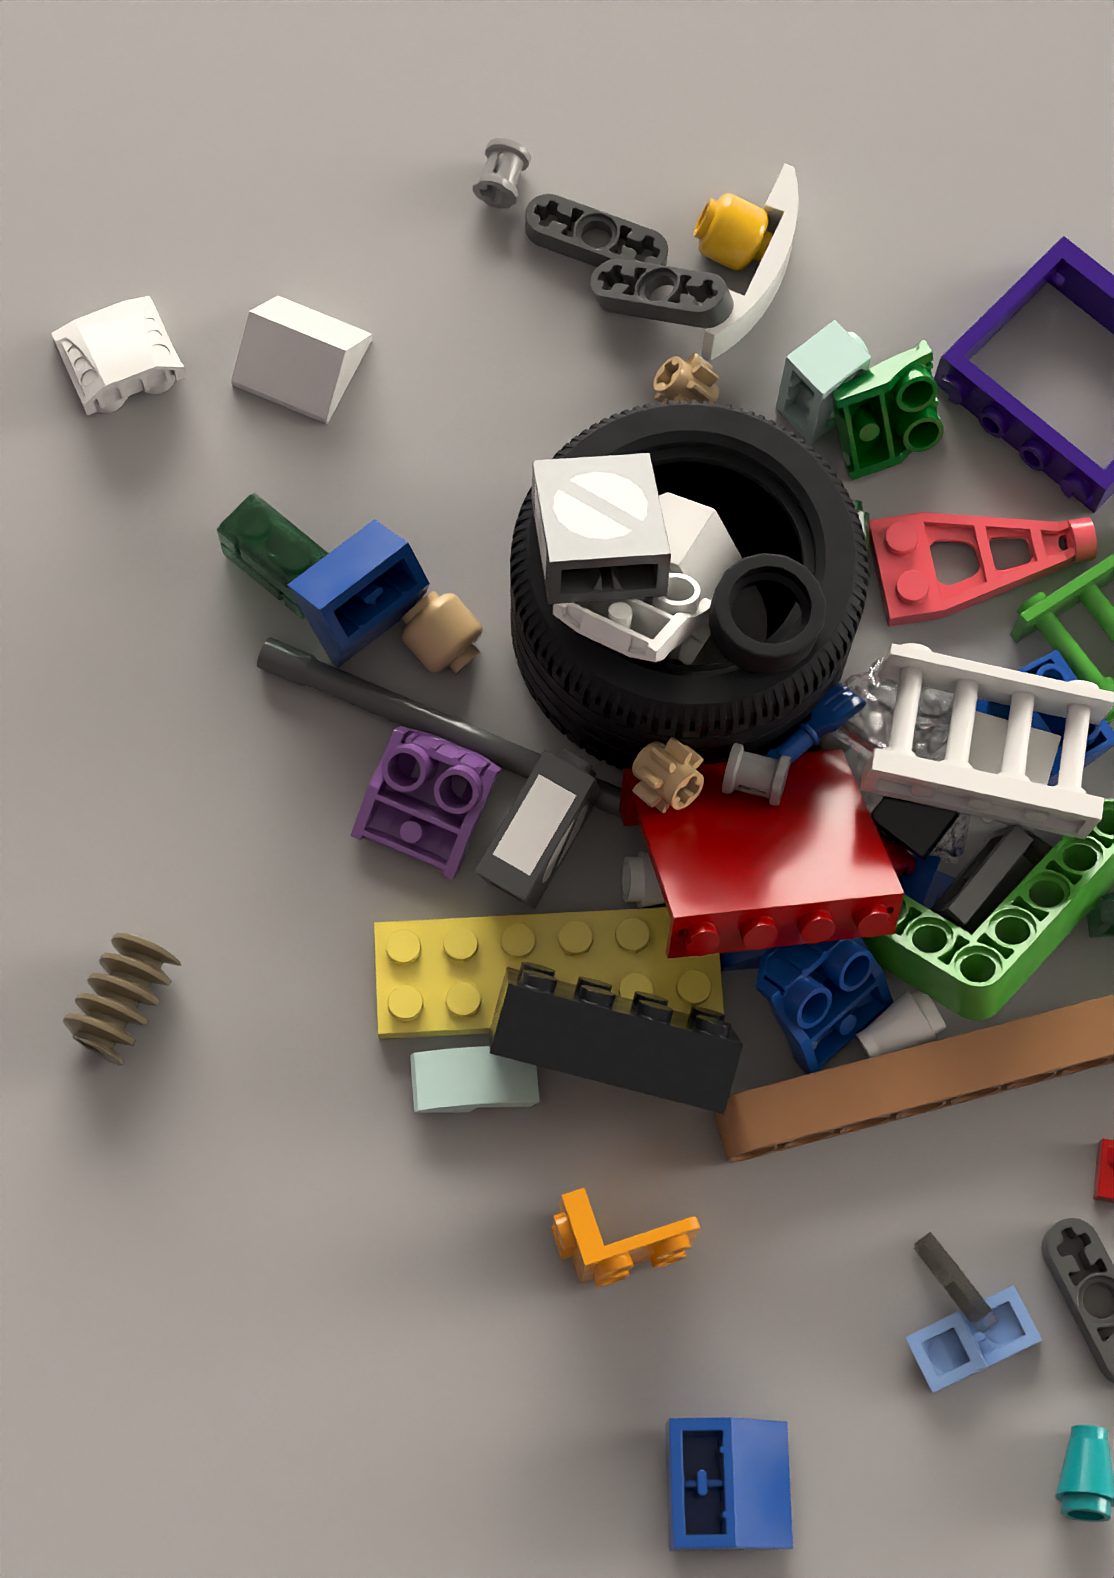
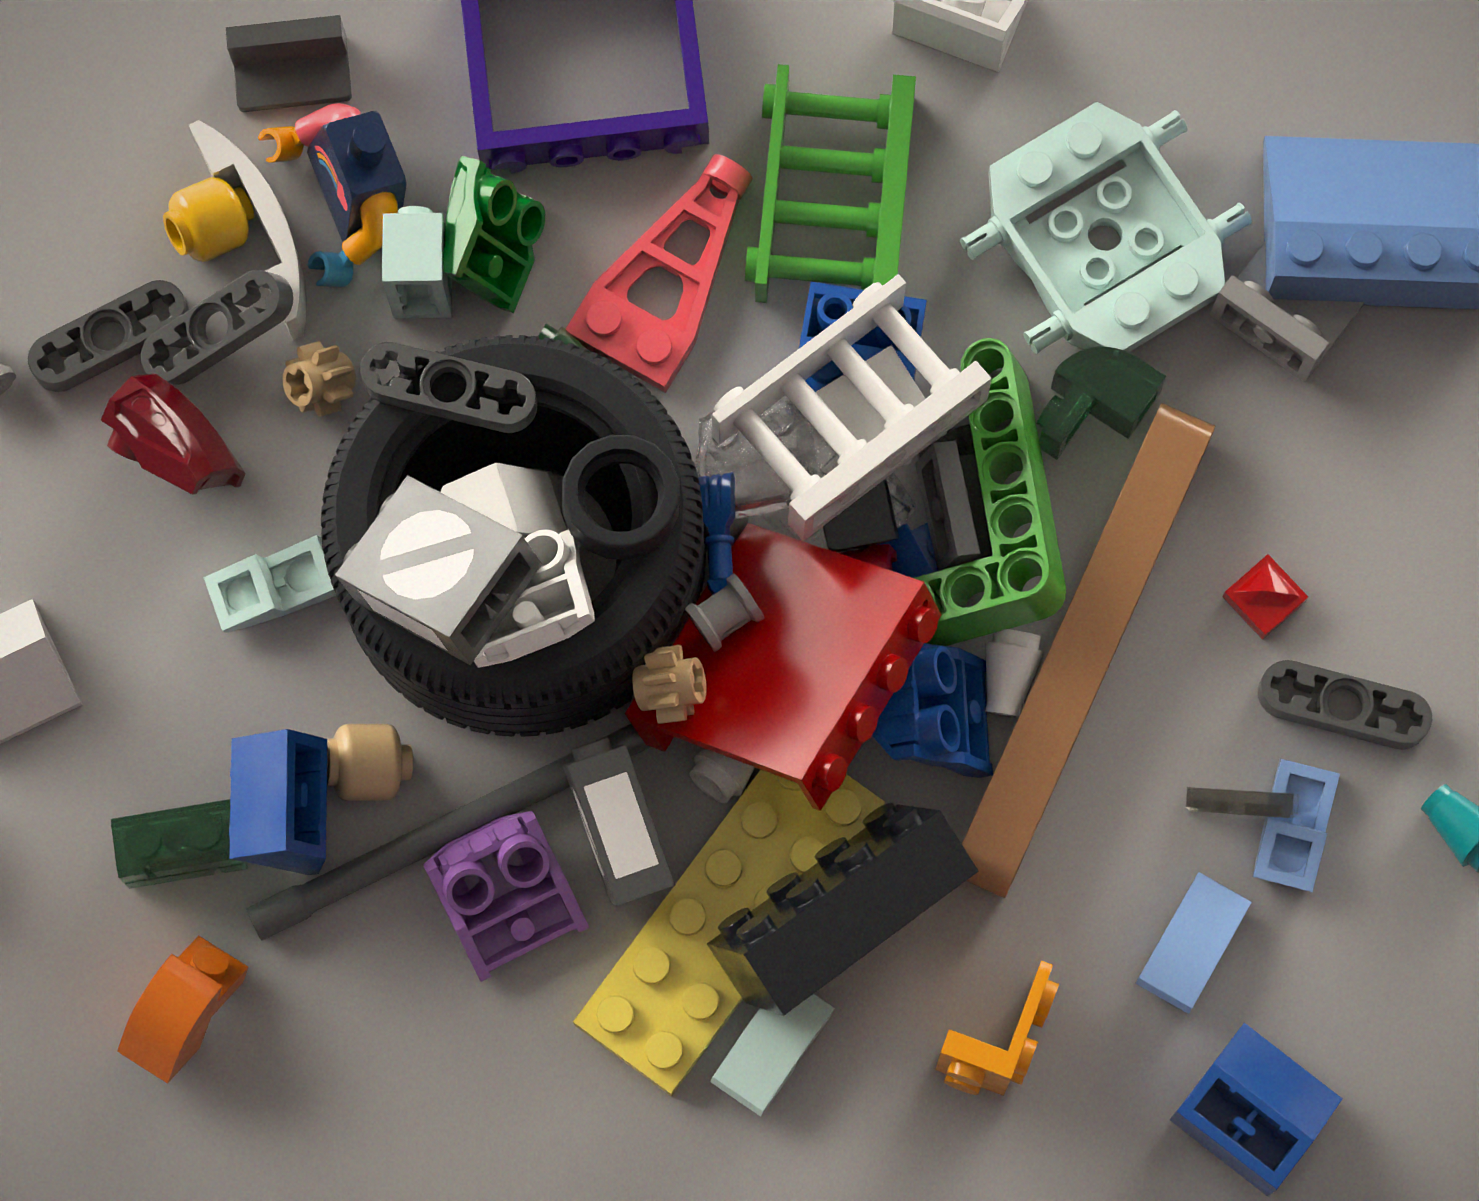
camera: 45 degrees left, 5 degrees up
(161, 640) = (178, 1006): none -> orange brick
(498, 467) = (270, 586): none -> light aqua slope
(556, 319) = (169, 436): none -> dark red slope
(746, 413) = (401, 390): none -> dark grey beam
(815, 1332) = (1193, 942): none -> light blue slope
(850, 295) = (356, 176): none -> torso
(891, 198) = (290, 63): none -> dark grey panel

